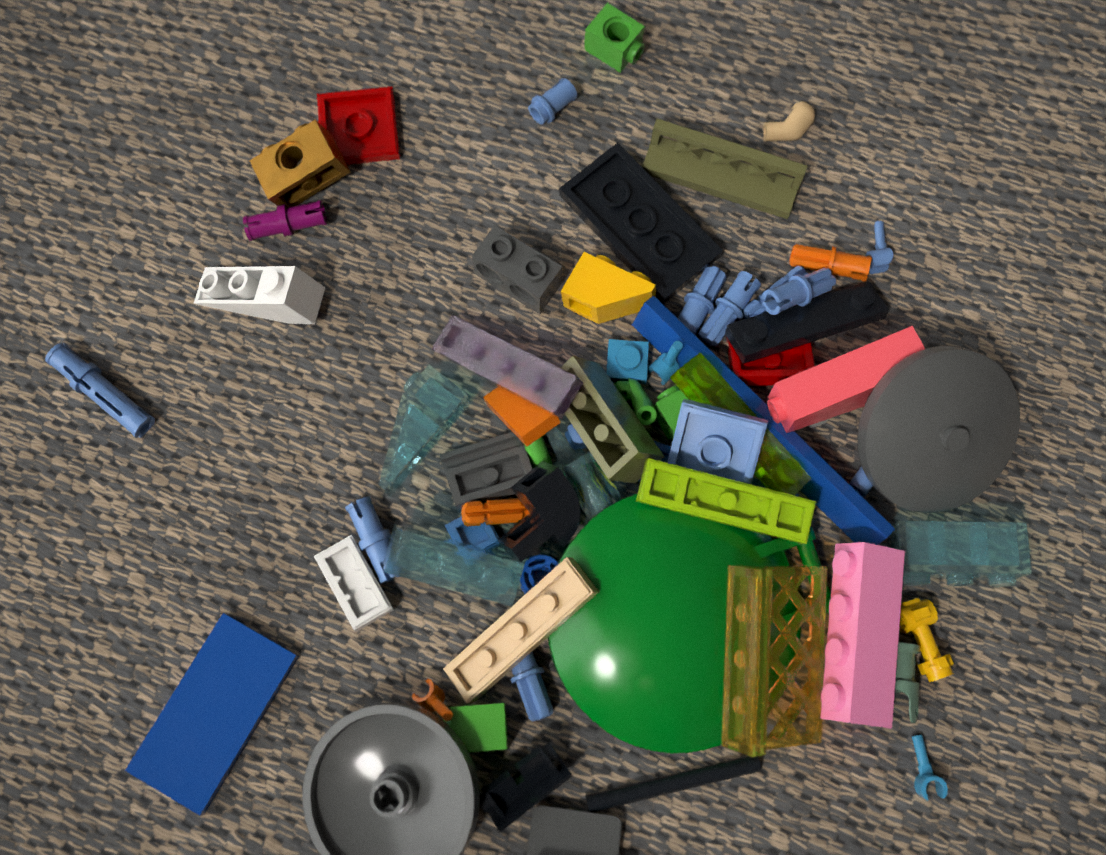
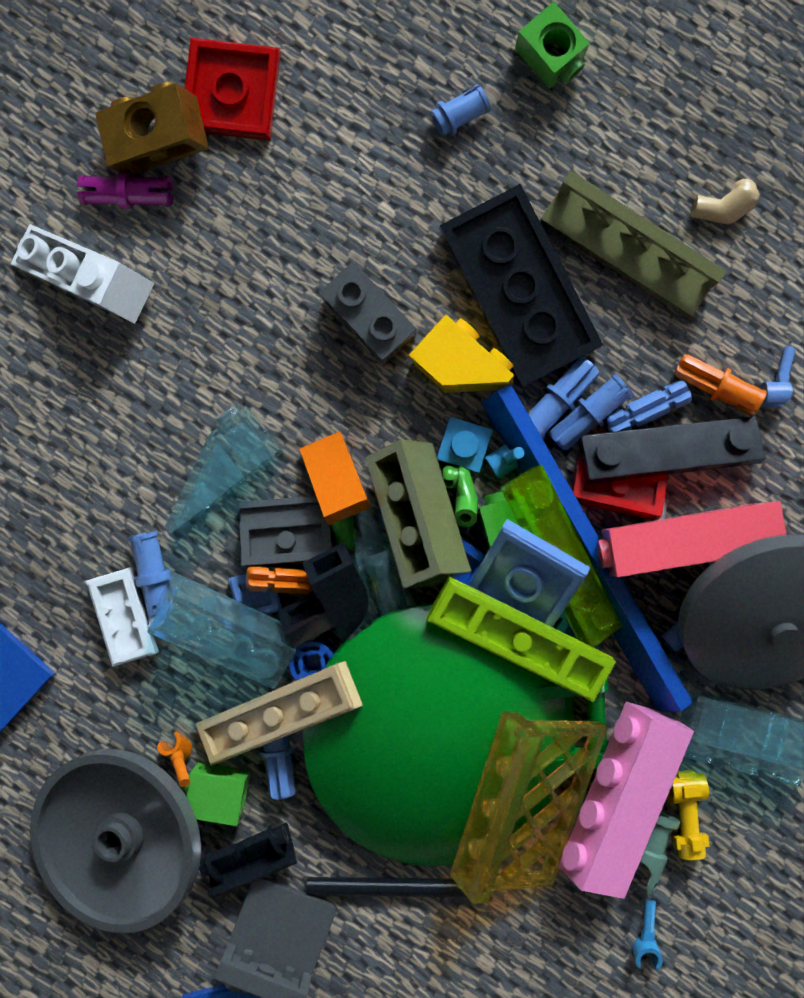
camera: 15 degrees right, 15 degrees up
(508, 366) = (329, 429): clear purple plate -> none
(798, 290) = (671, 415): medium blue axle -> none

